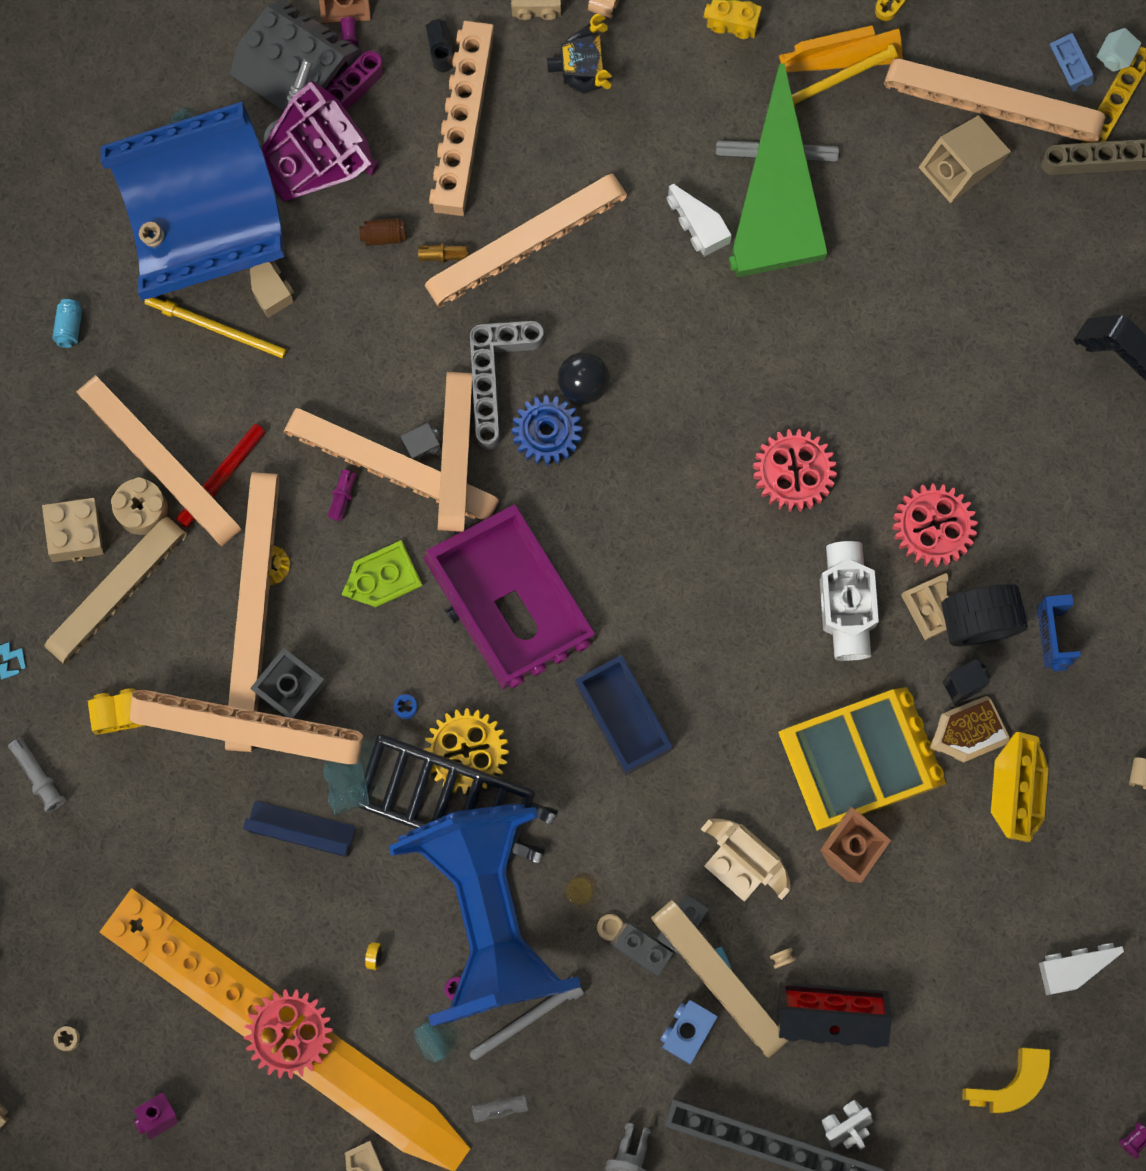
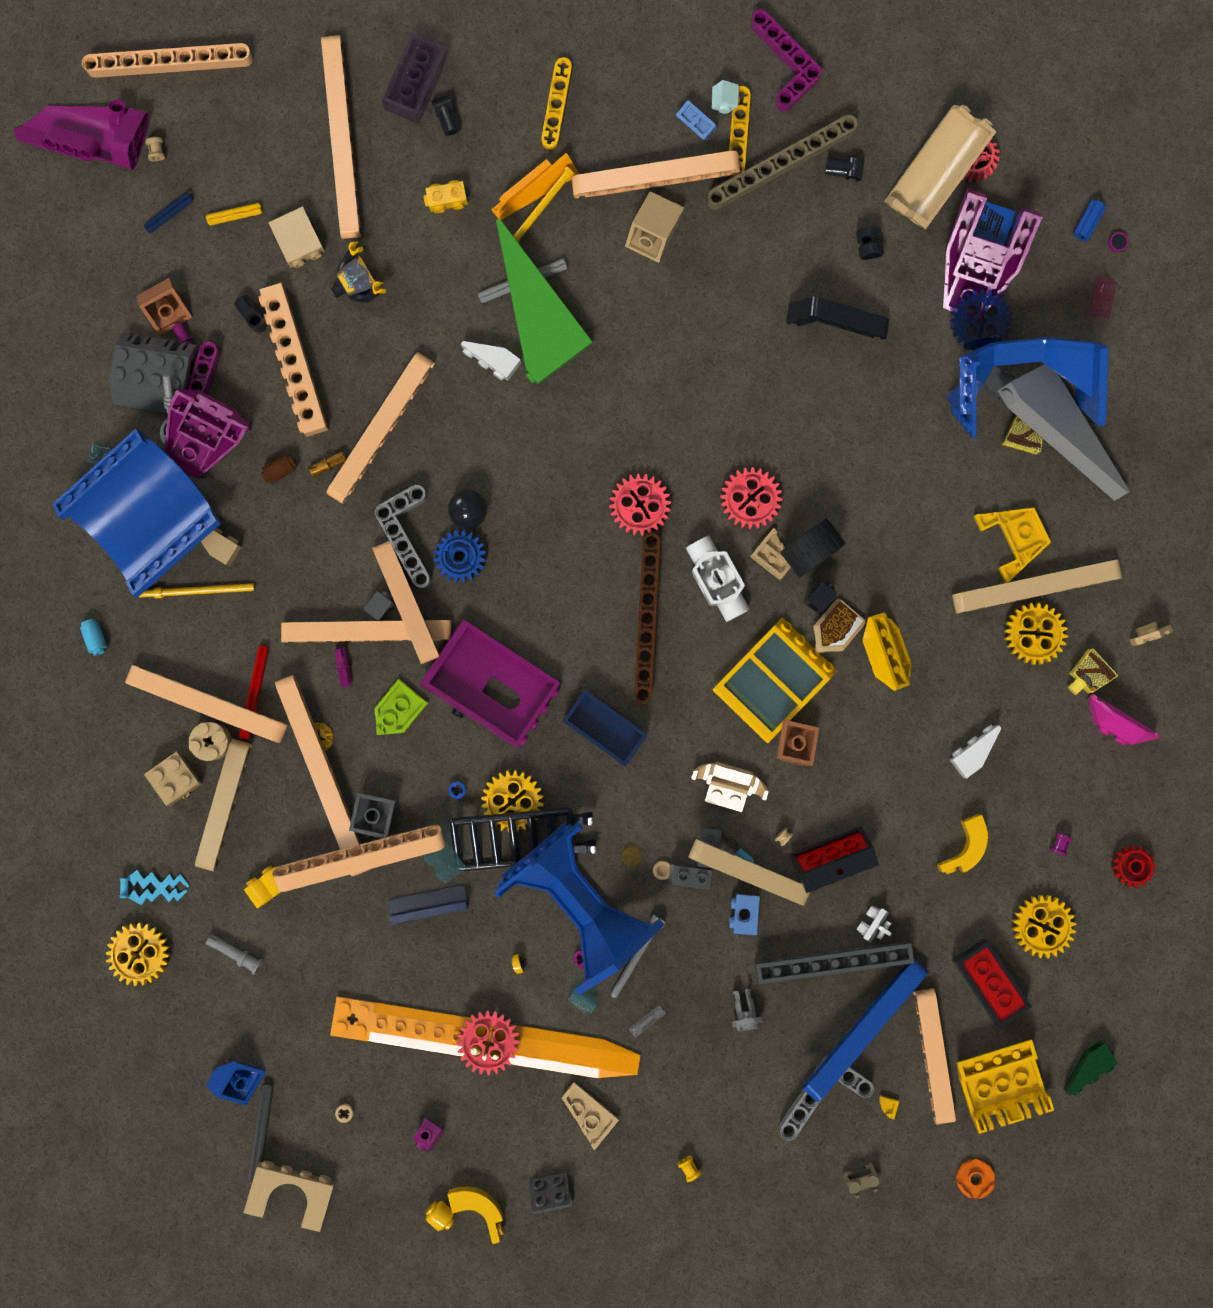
camera: 25 degrees left, 10 degrees up
(145, 237) = (113, 549): tan bush -> none
(740, 596) = (650, 609): none -> reddish brown beam
(1046, 610) = (864, 546): blue panel -> none

